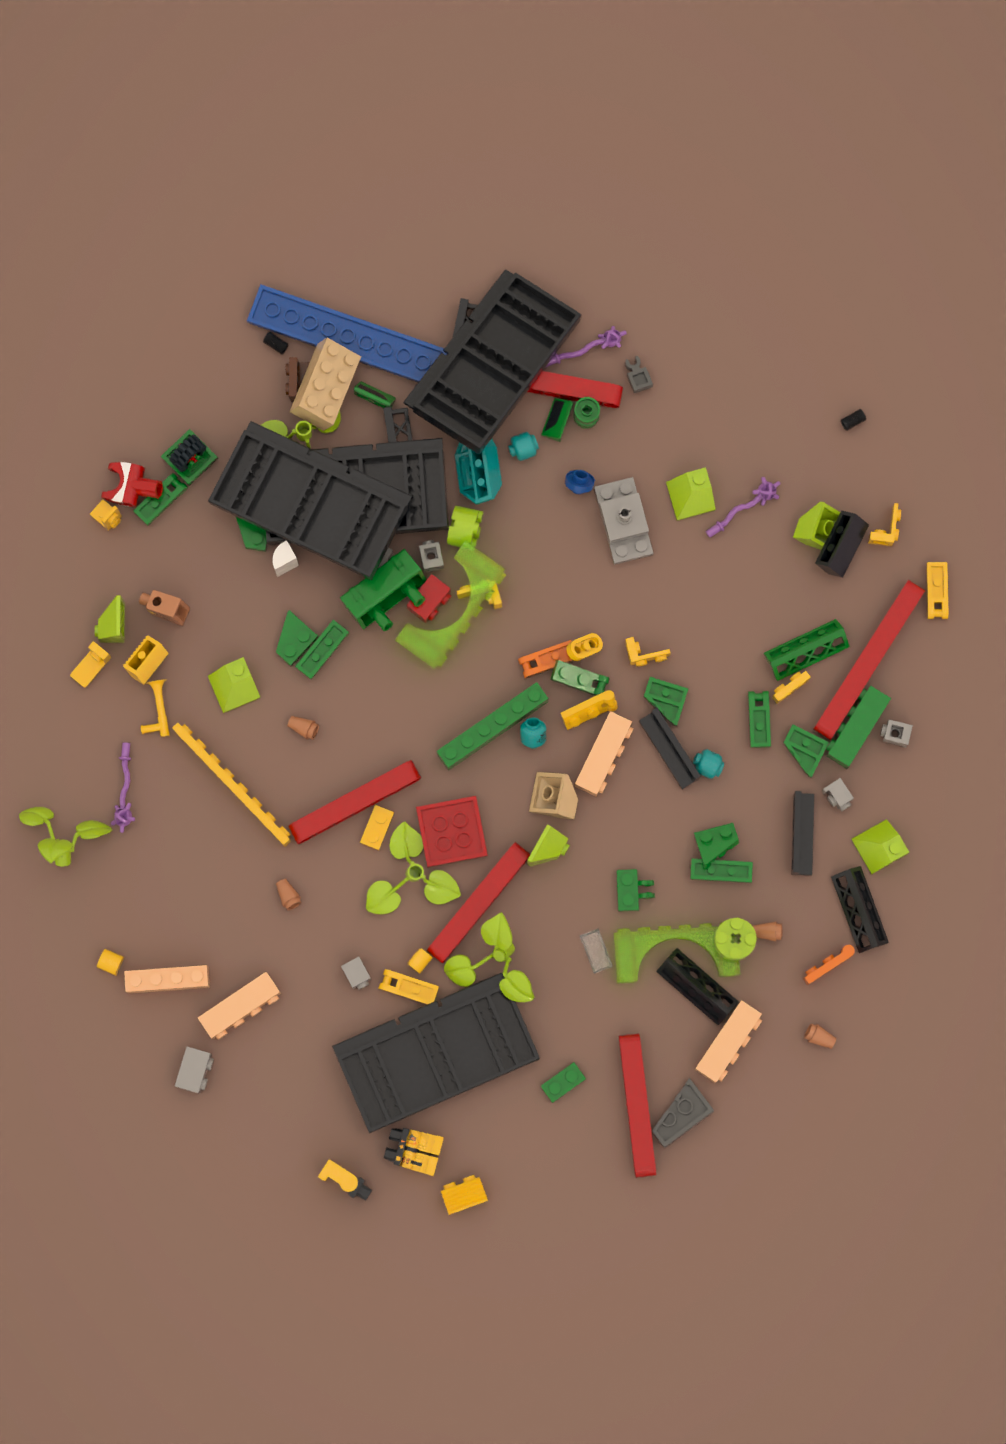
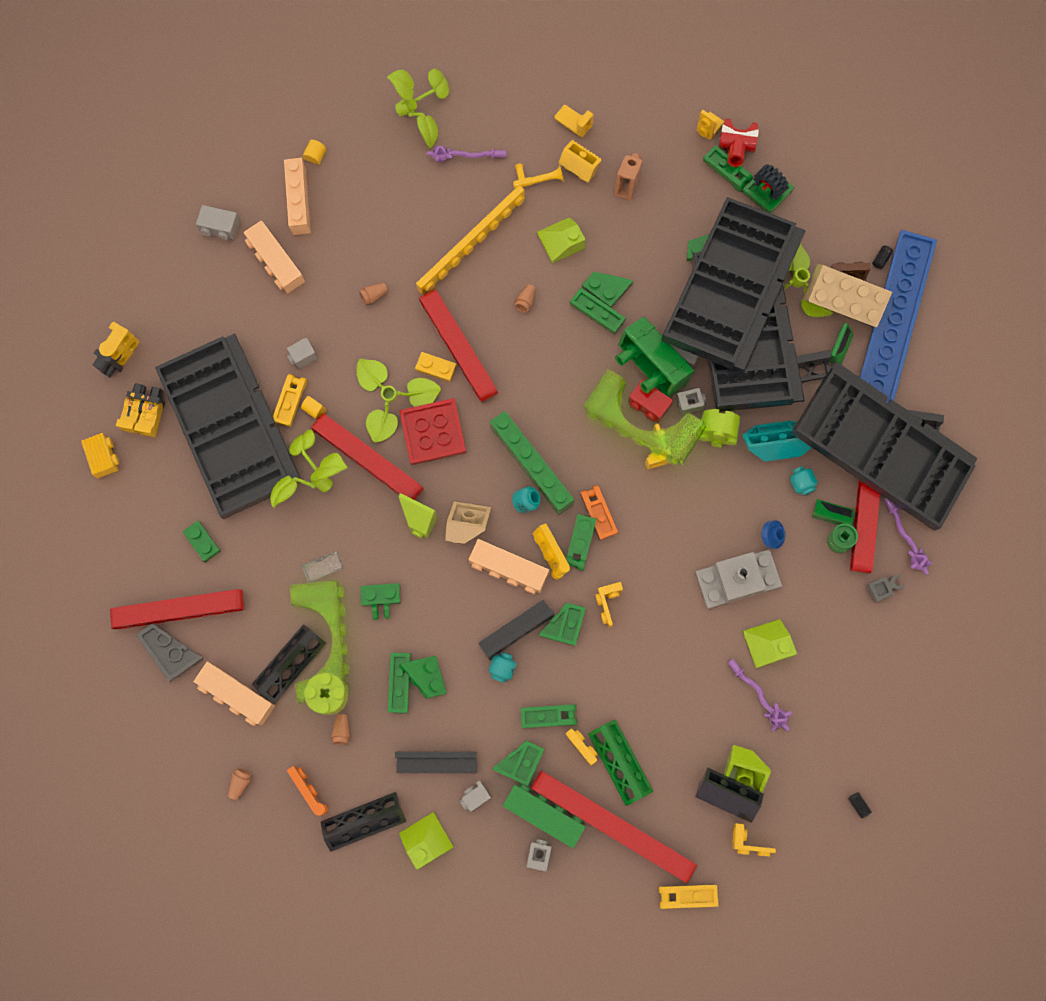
camera: 95 degrees right, 5 degrees down
(112, 623) = (614, 134): lime slope -> none
(284, 559) = (678, 269): white brick -> none
(581, 649) = (610, 543): yellow plate -> none

